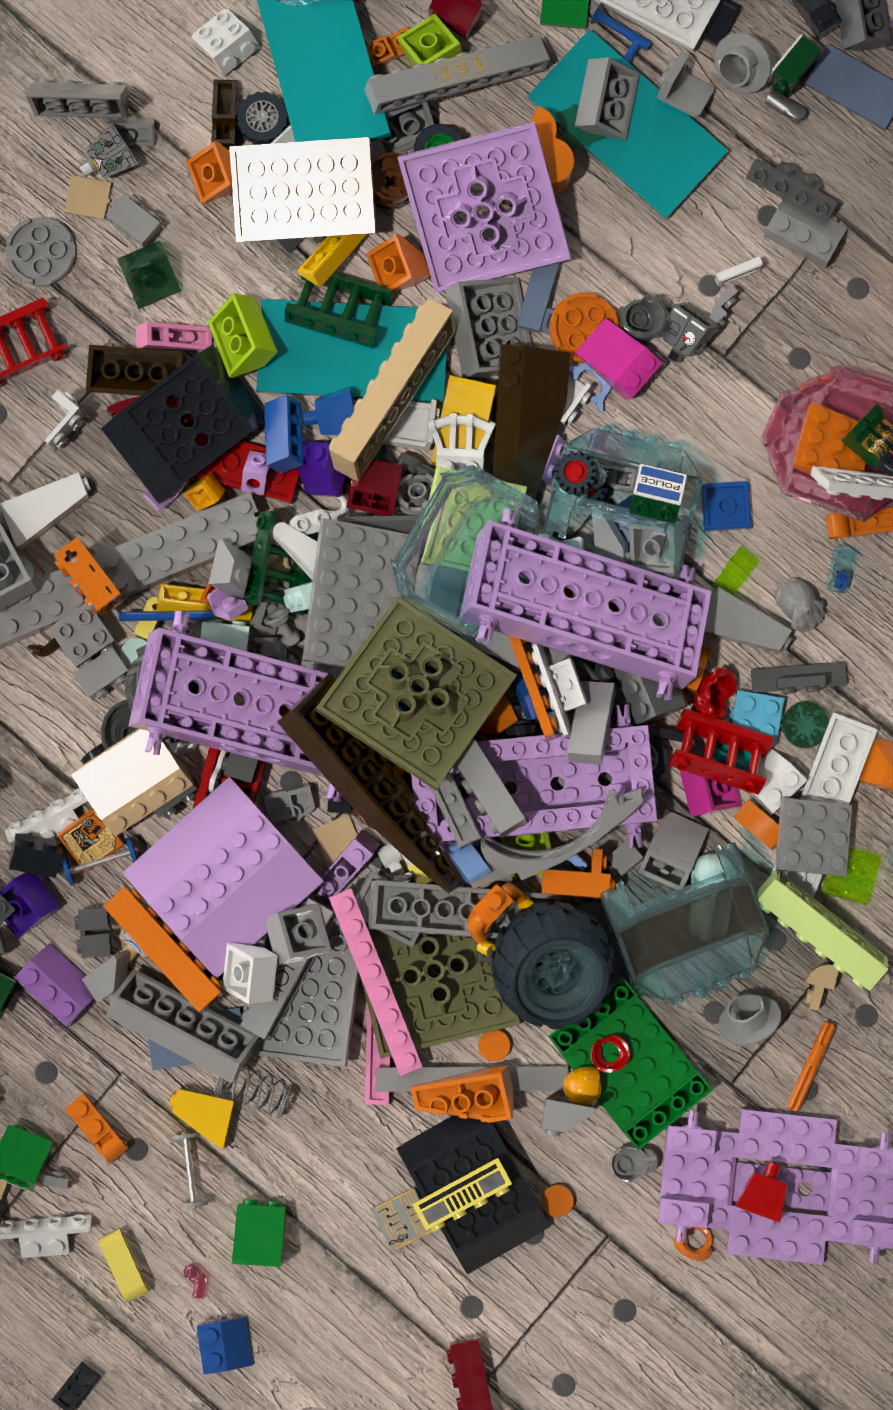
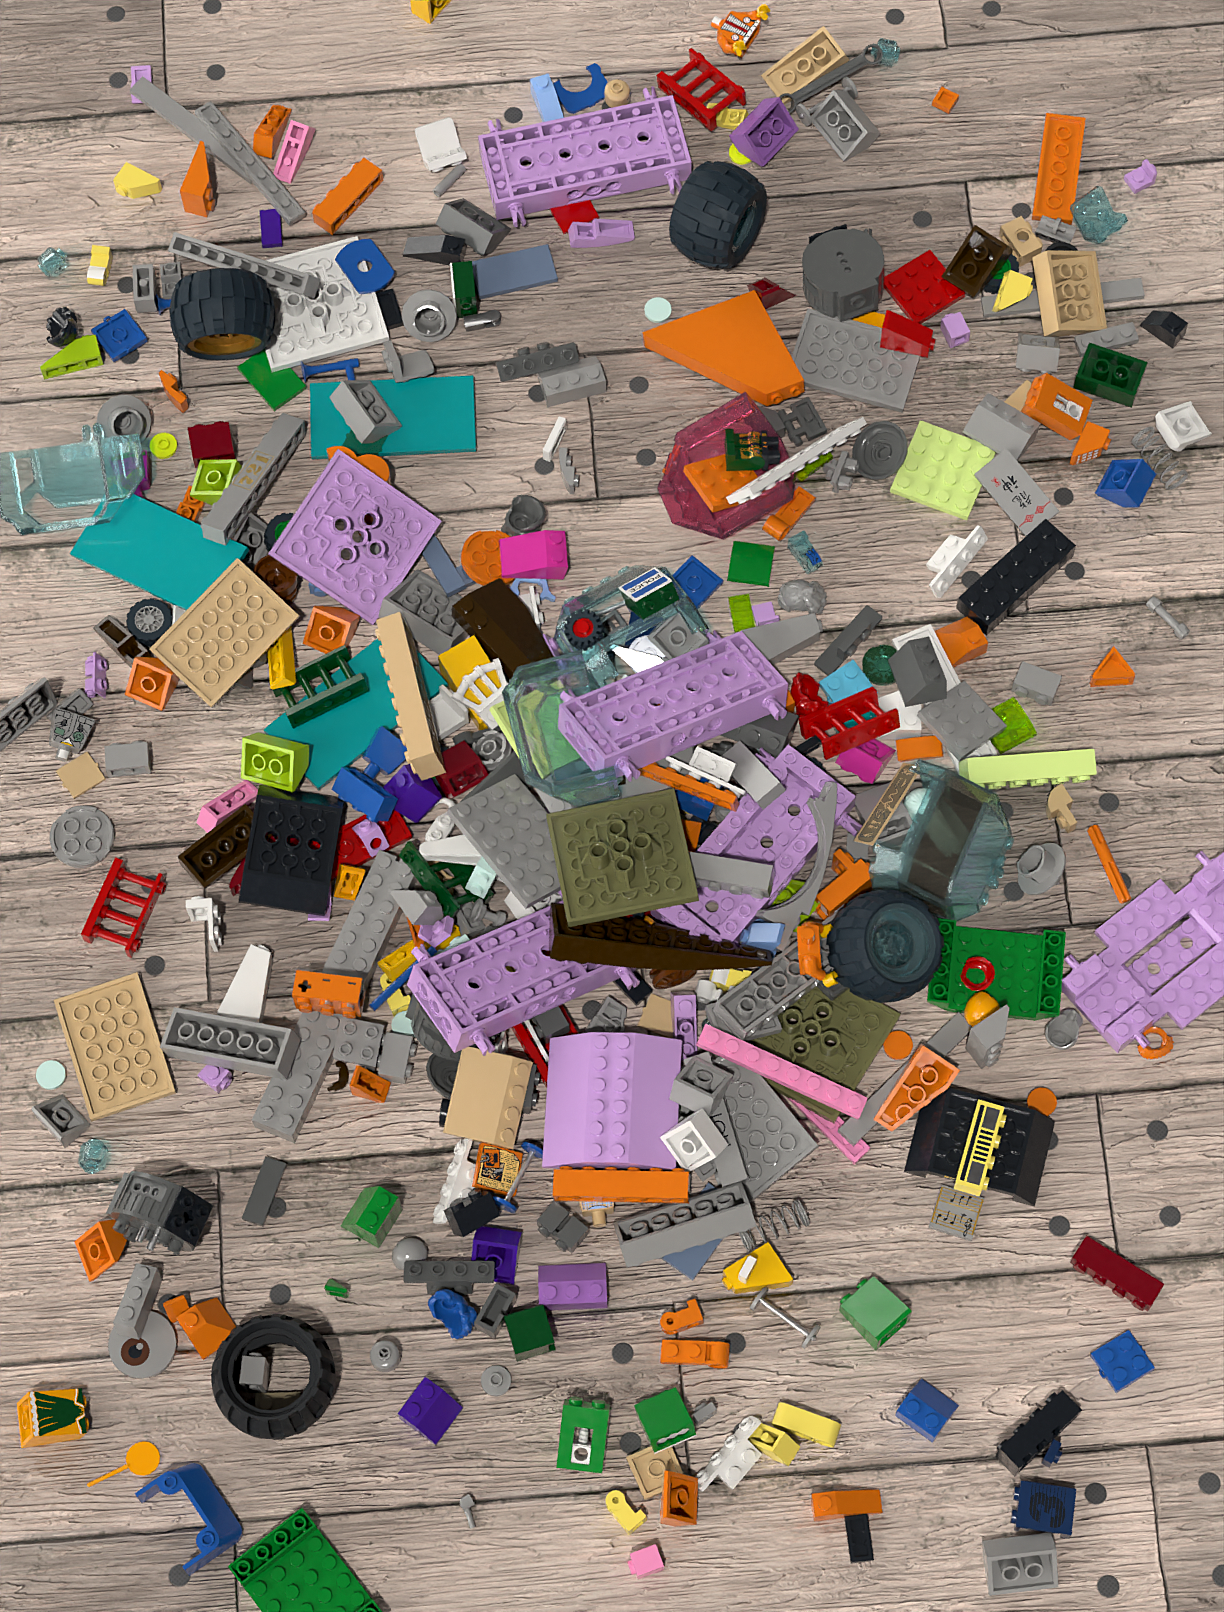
camera: 45 degrees left, 15 degrees down
(60, 675) = (369, 1085): none -> orange slope
(84, 1256) = (774, 1444): none -> light yellow slope
(92, 1353) = (845, 1503): none -> orange slope
(104, 1089) = (682, 1320): none -> orange leg
(108, 977) = (602, 1245): light grey slope -> none
(149, 274) = (171, 782): clear green slope -> none
(171, 132) = (95, 667): none -> lavender hinge
(193, 1108) = (747, 1269): none -> white tile
(198, 1278) = (864, 1384): clear pink arm -> none
(226, 41) = (77, 595): white bracket -> none
(456, 812) = (722, 912): light grey tile -> none
(578, 863) = (828, 879): light blue tile -> none
(683, 847) = (886, 805): none -> sticker
(687, 331) = (561, 500): dark grey torso -> none
(753, 590) = (764, 614): none -> lavender bracket
(764, 1194) = (1166, 964): red torso -> none
(787, 535) = (751, 563): none -> green slope
(817, 764) = (918, 673): none -> dark grey slope

